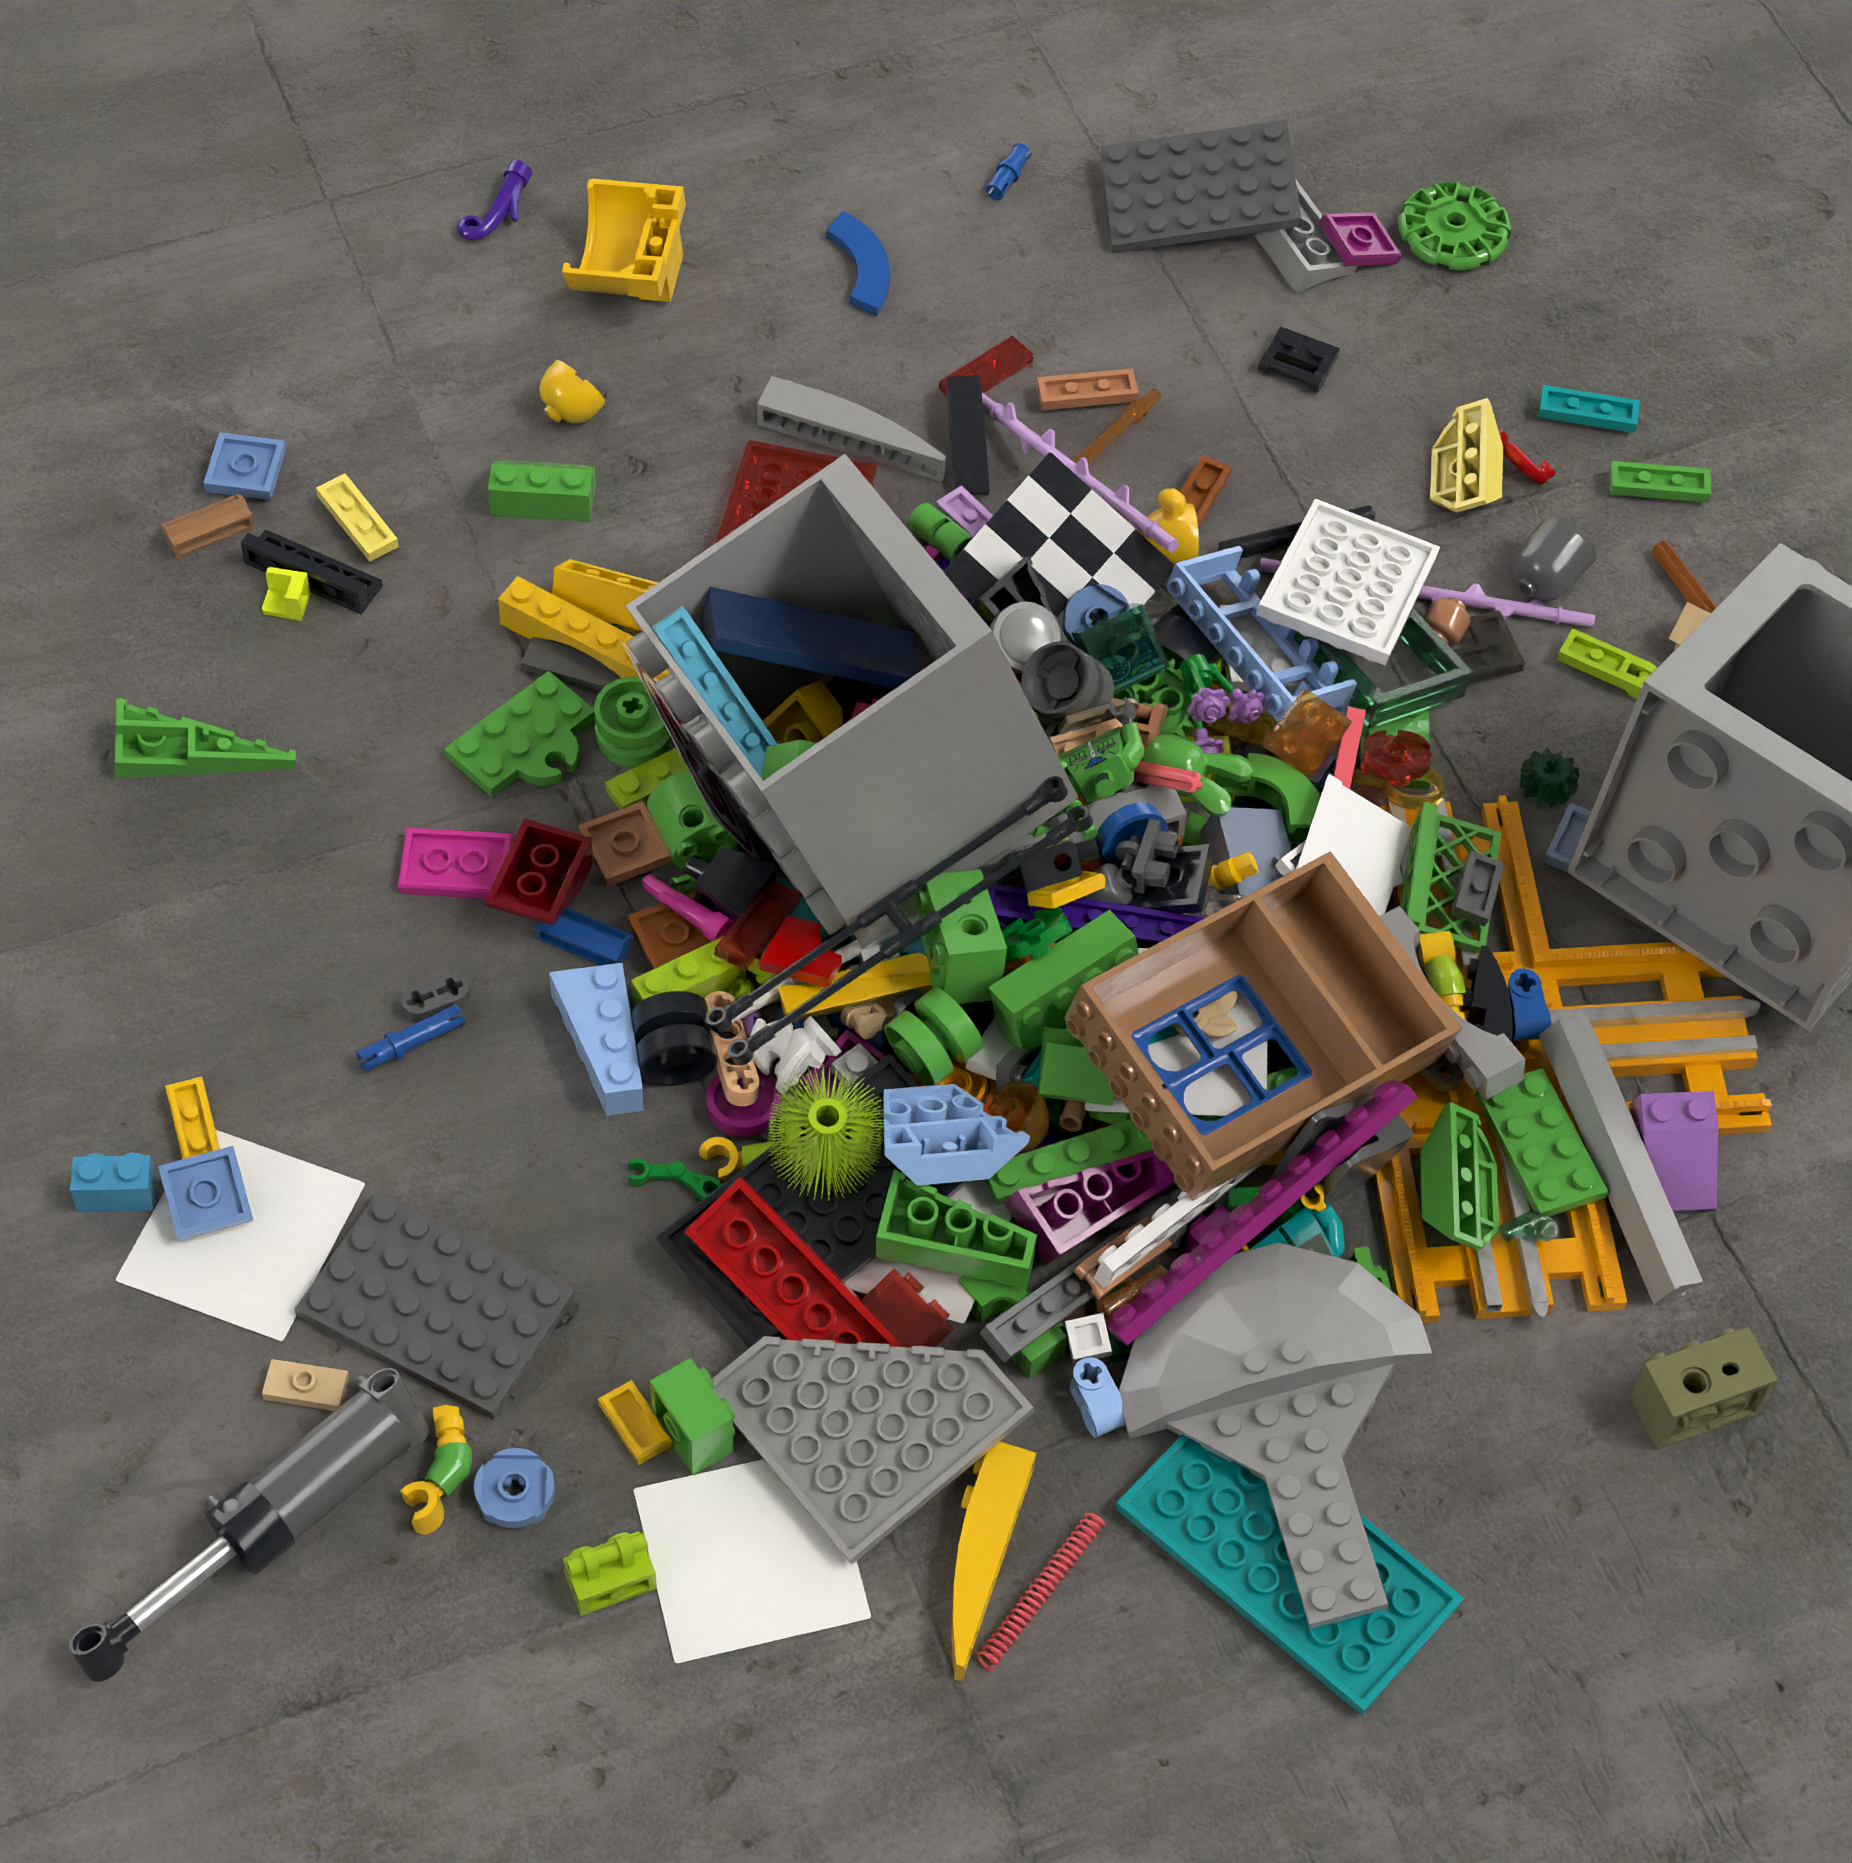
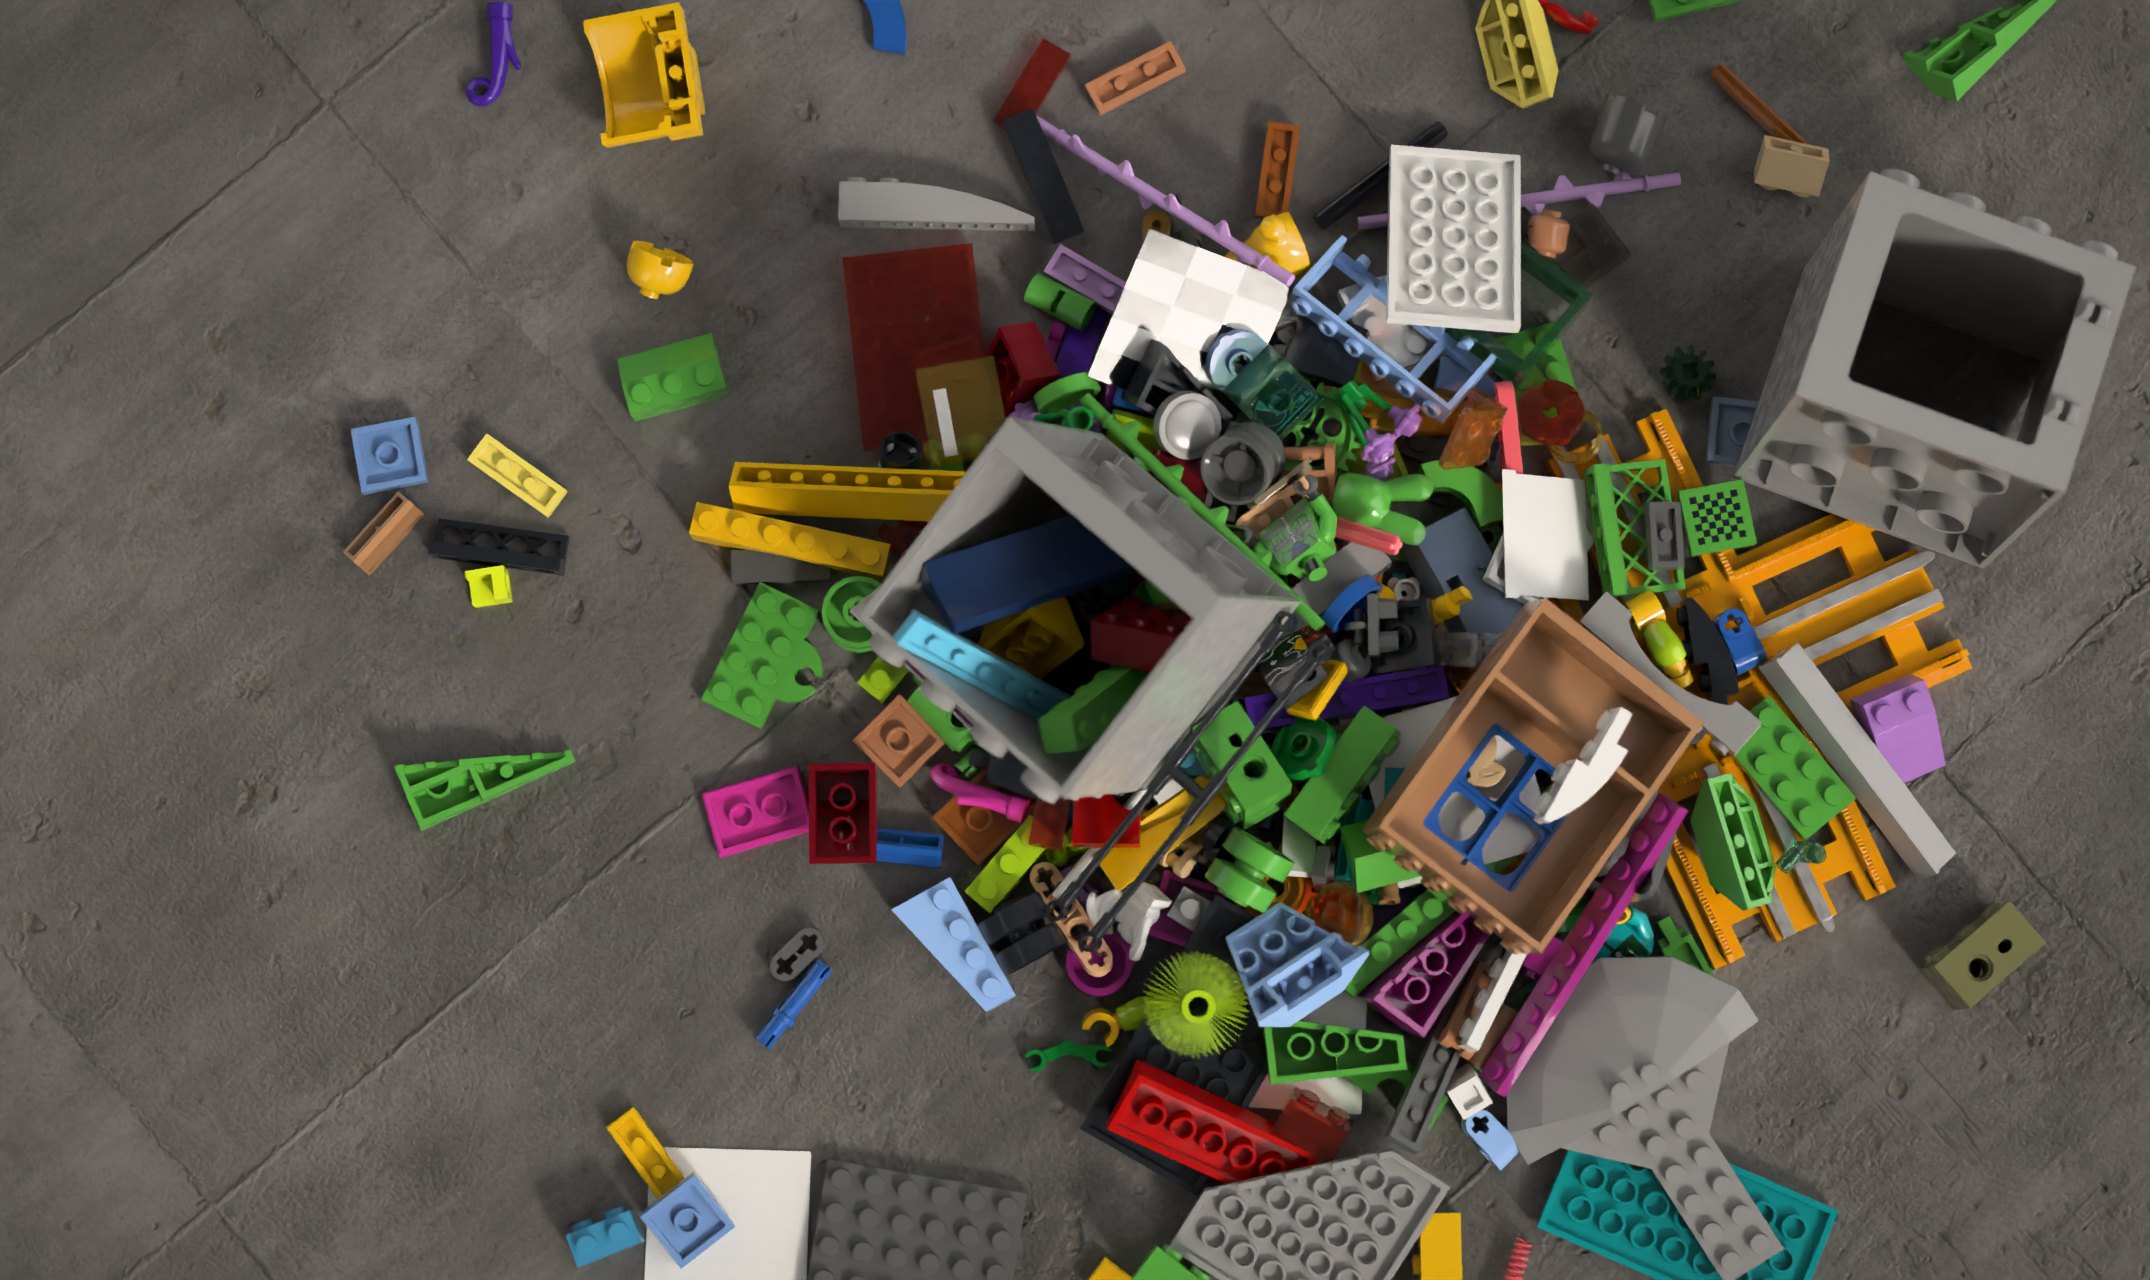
camera: 15 degrees left, 25 degrees up
(1132, 415) = (1187, 88): clear orange bar -> none
(1316, 1015) = (1582, 779): none -> white slope
(1538, 899) = (1716, 518): none -> bright green tile
(1605, 662) = (1704, 224): lime plate -> none

